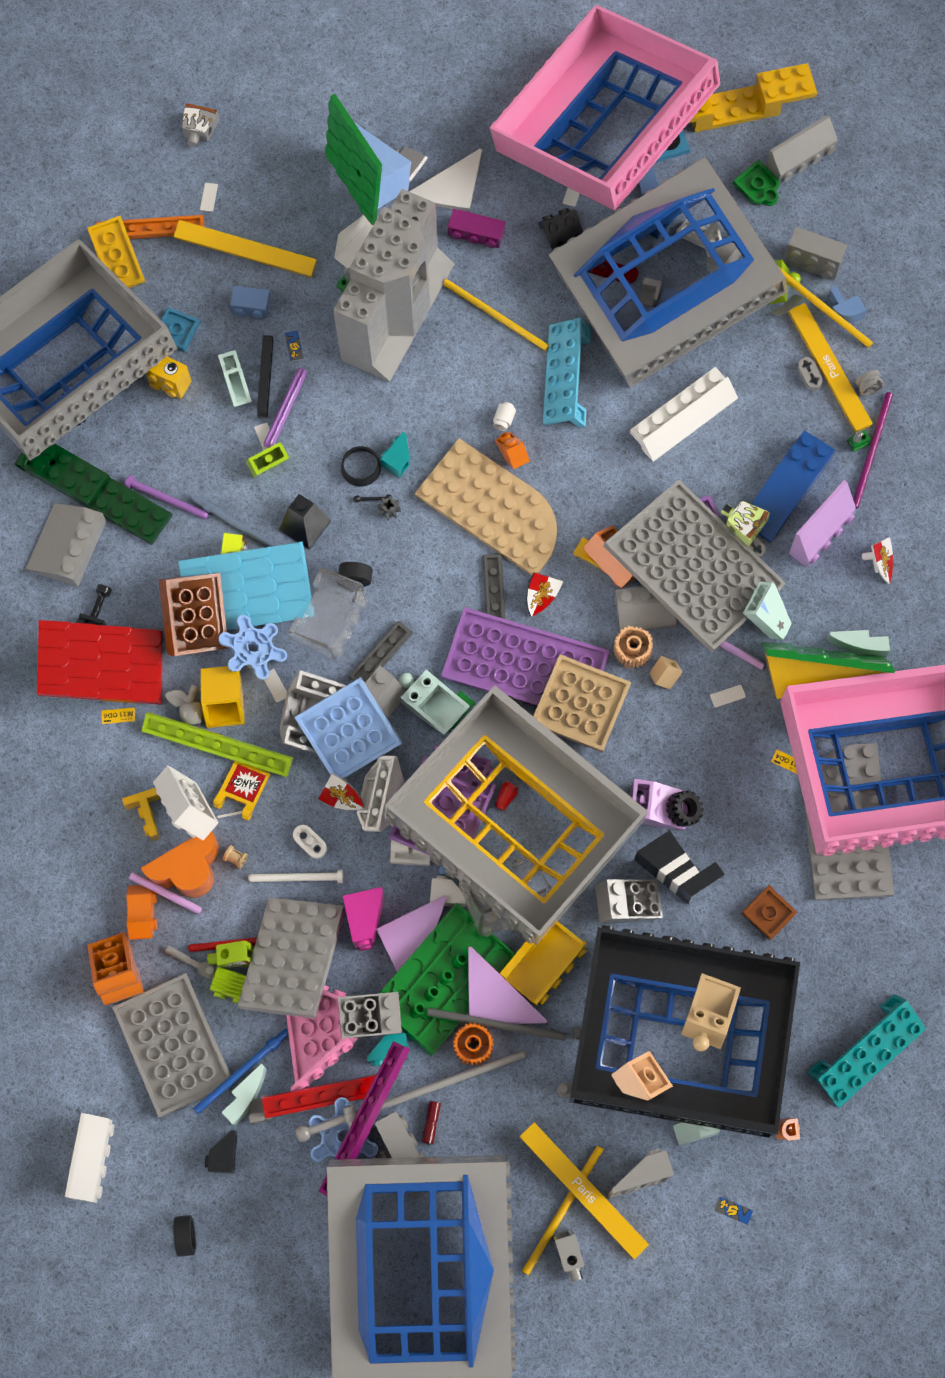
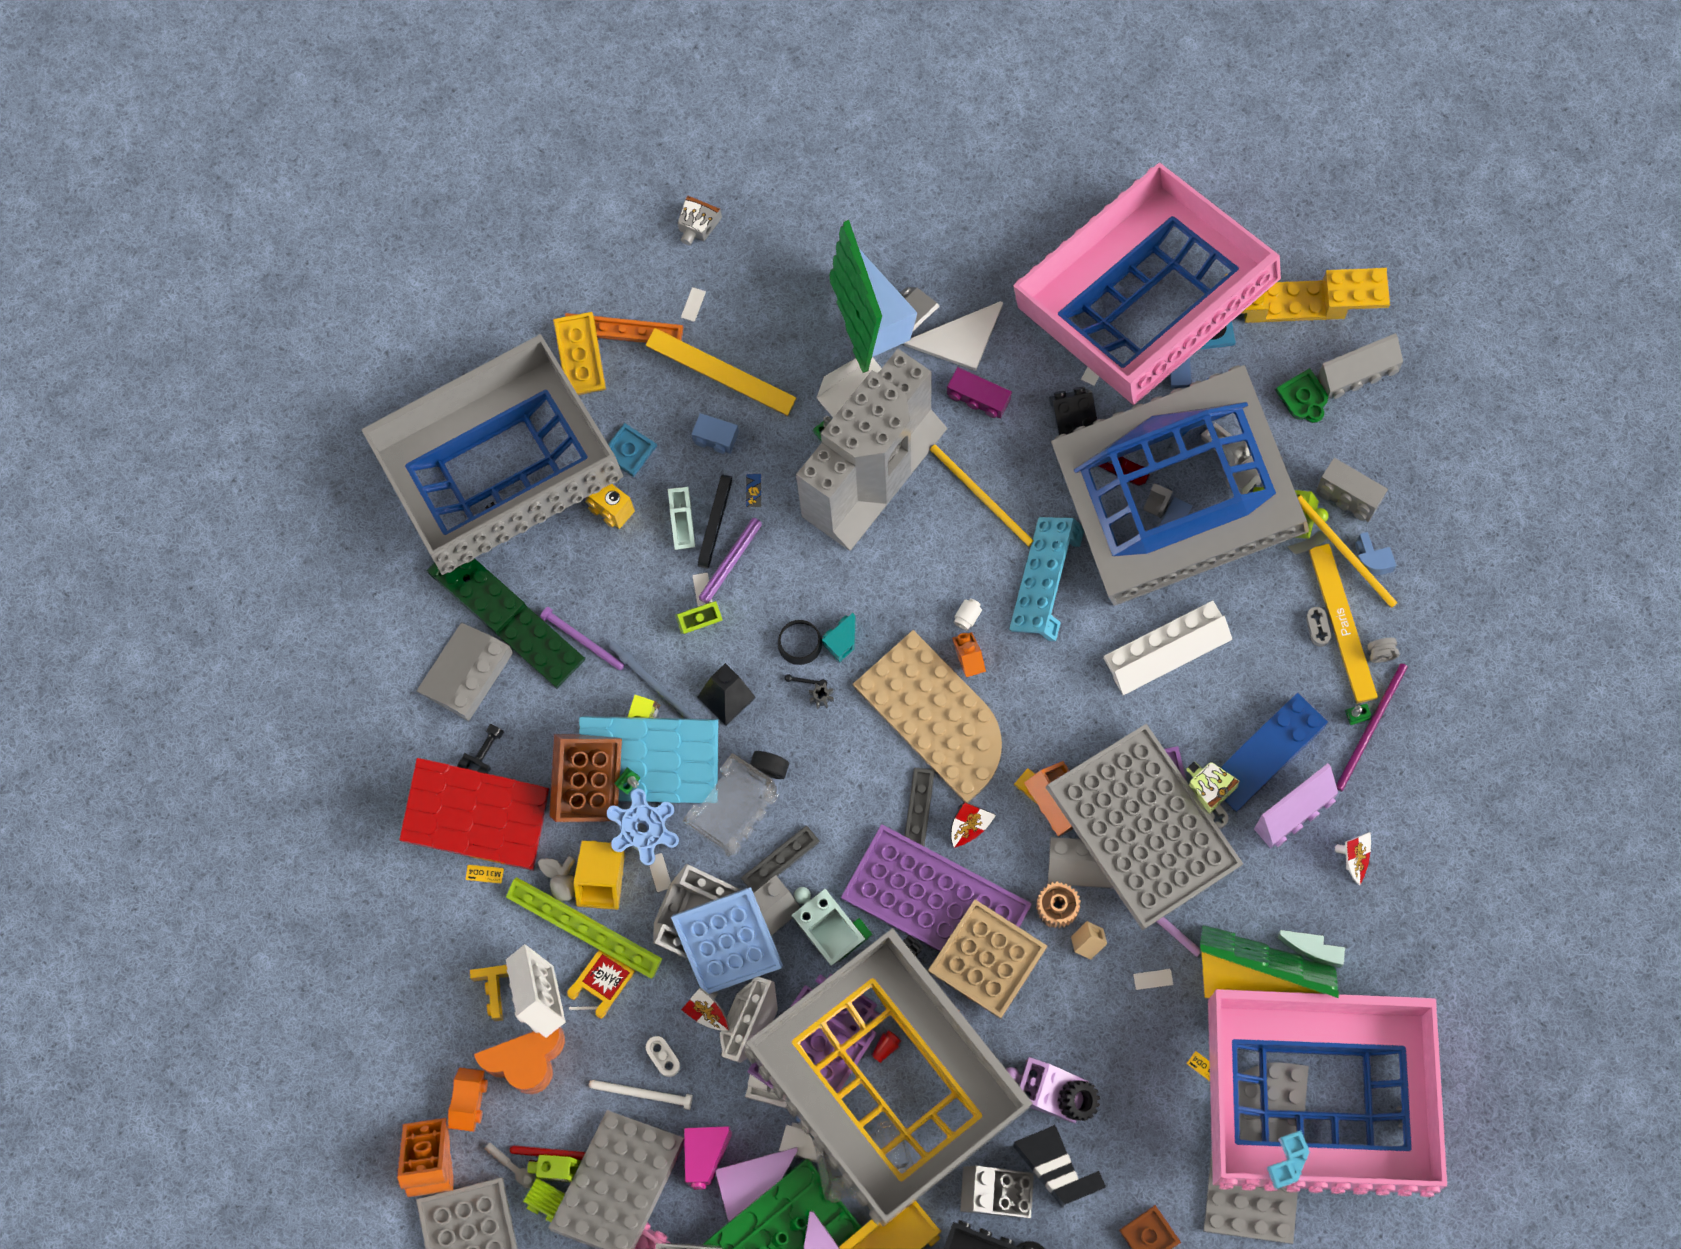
camera: 15 degrees right, 0 degrees up
(165, 893) = (500, 1087): lavender bar -> none
(232, 605) = (630, 777): none -> green piece
(235, 857) = (579, 1058): tan bush -> none
(768, 611) = (1215, 893): light aqua slope -> none
(883, 824) = (1296, 1152): none -> medium azure tile

